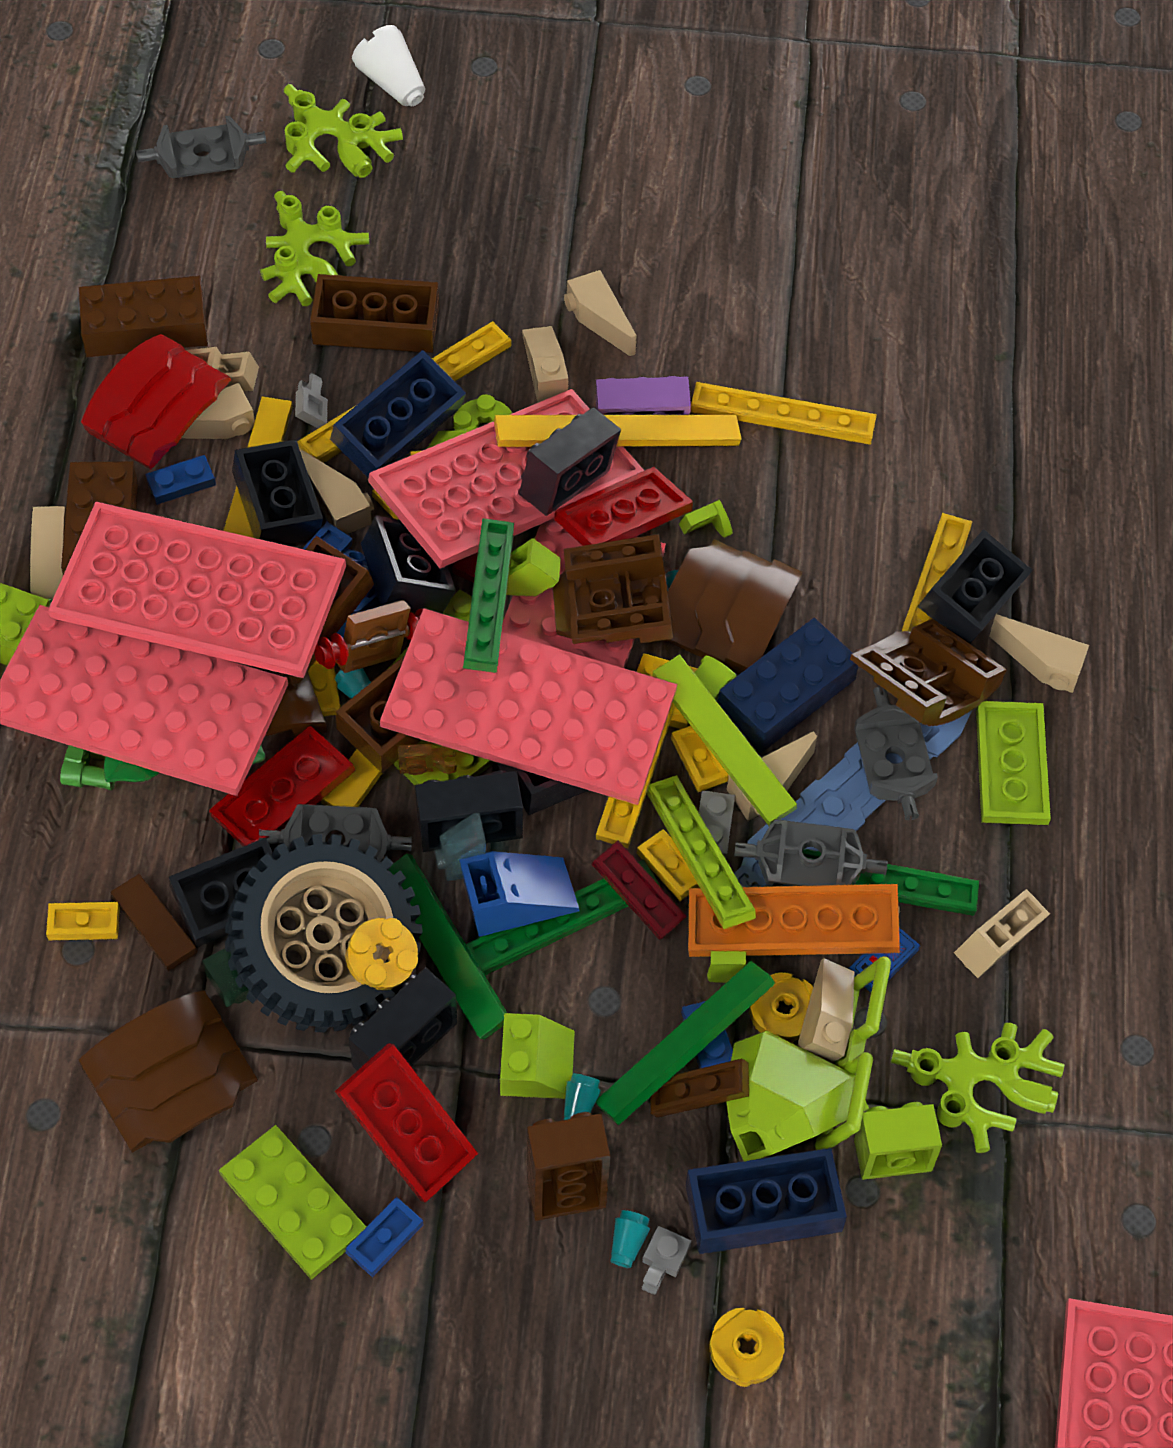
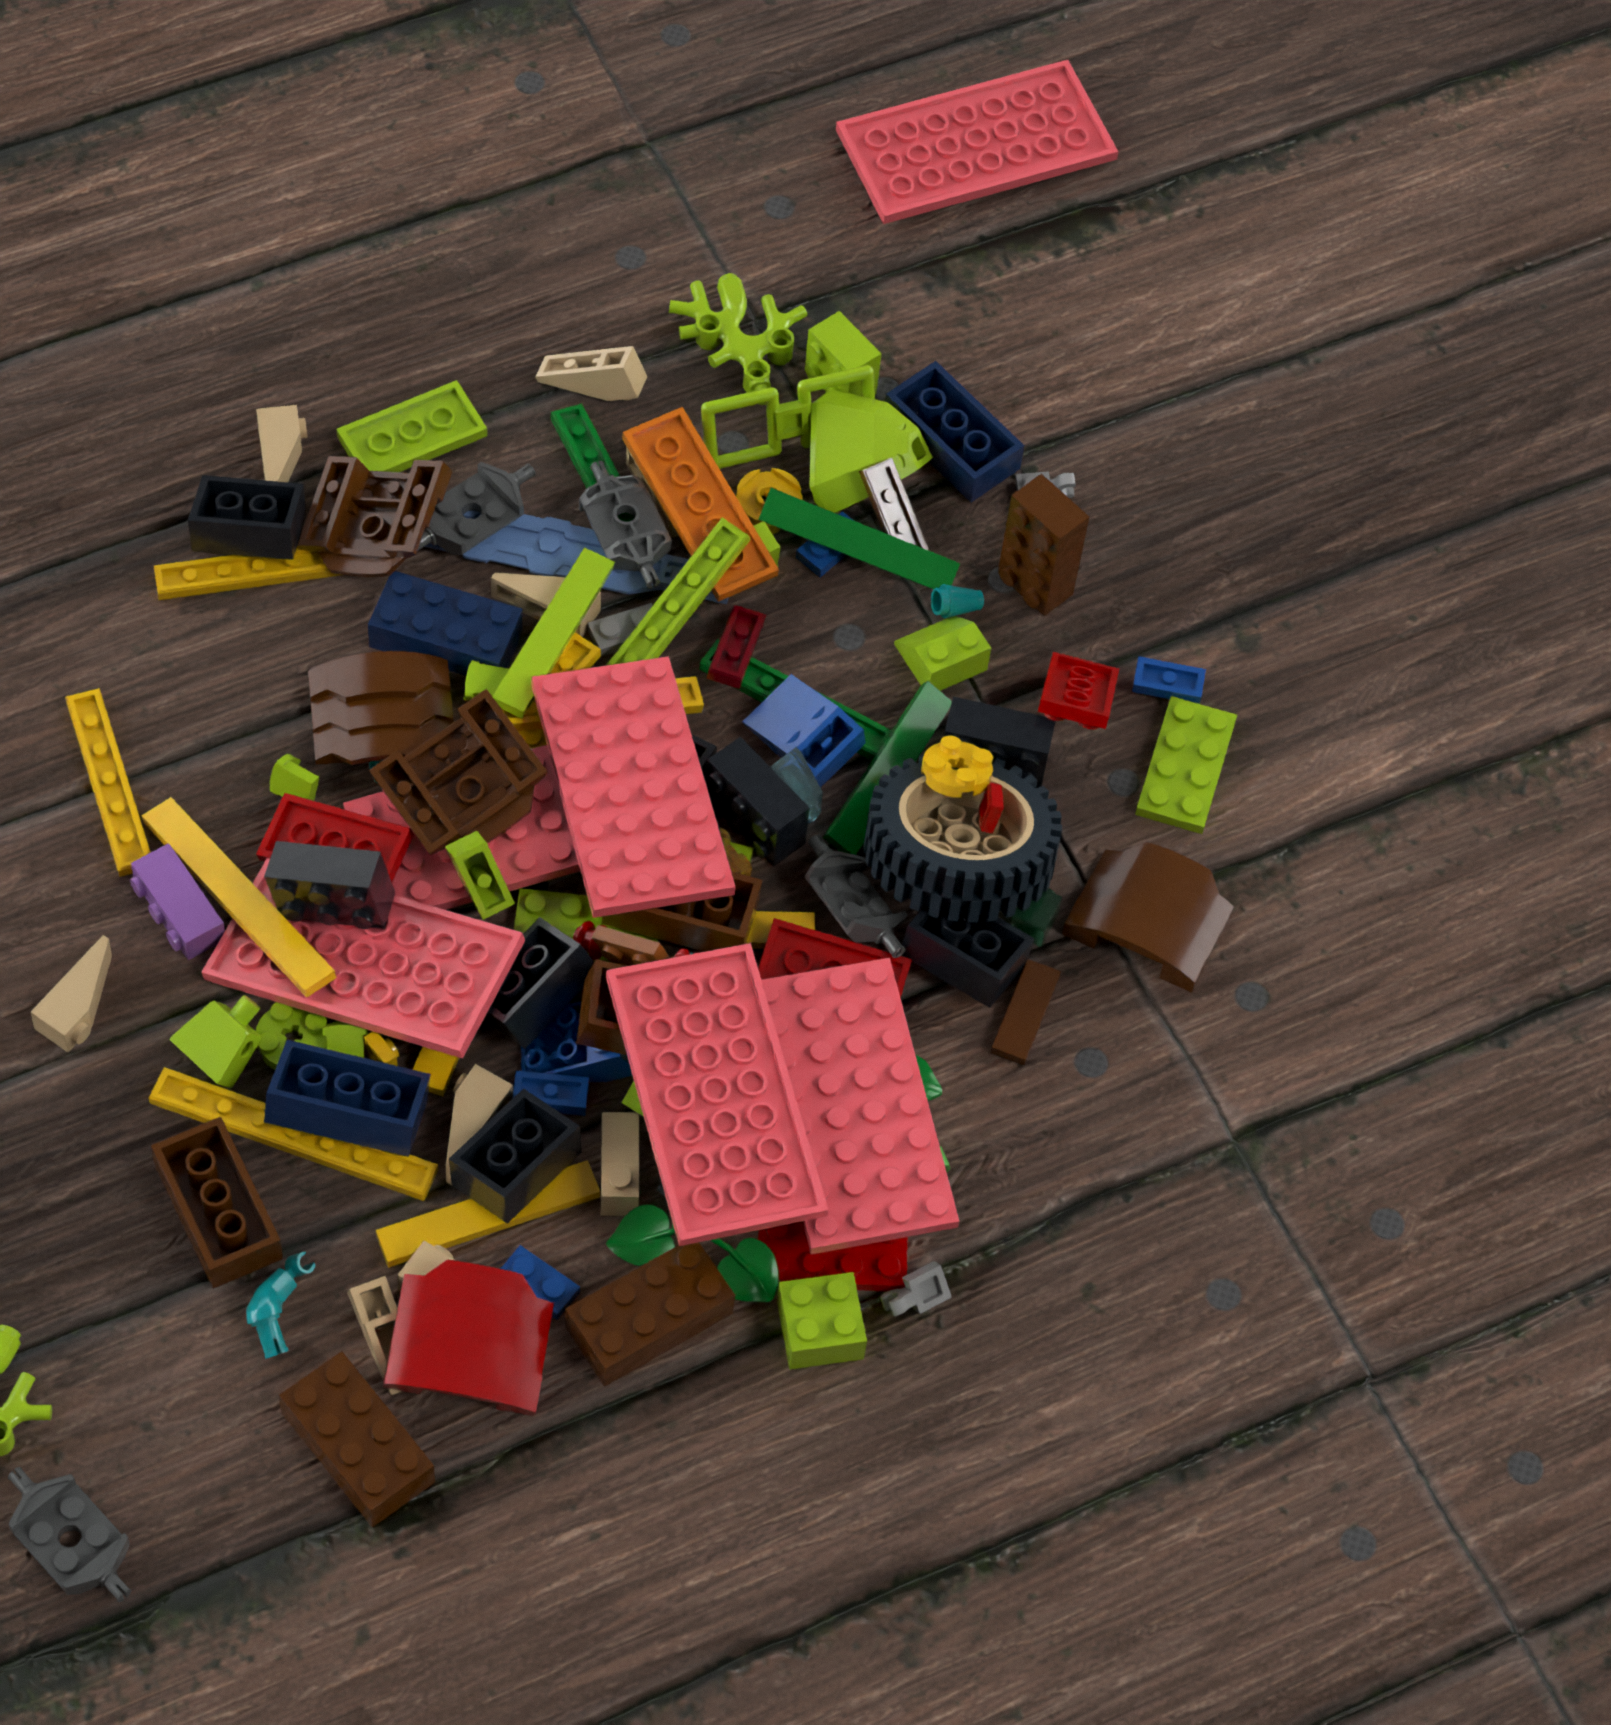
camera: 125 degrees left, 0 degrees up
(46, 550) = (716, 1338): tan slope -> none
(83, 921) = (1068, 1064): yellow plate -> none
(282, 313) = (268, 1302): none -> teal arm
(293, 256) = (149, 1355): lime plant -> none
(309, 403) = (368, 1206): light grey plate -> none
(330, 963) = (990, 807): none -> red tile
(489, 596) = (541, 863): green tile -> none
(500, 368) = (220, 1039): none -> lime torso
(545, 362) = (184, 1000): tan slope -> none
(668, 864) = (692, 640): yellow plate -> none
(747, 1368) = (1065, 418): yellow plate -> none
(829, 1012) = (767, 450): tan slope -> none

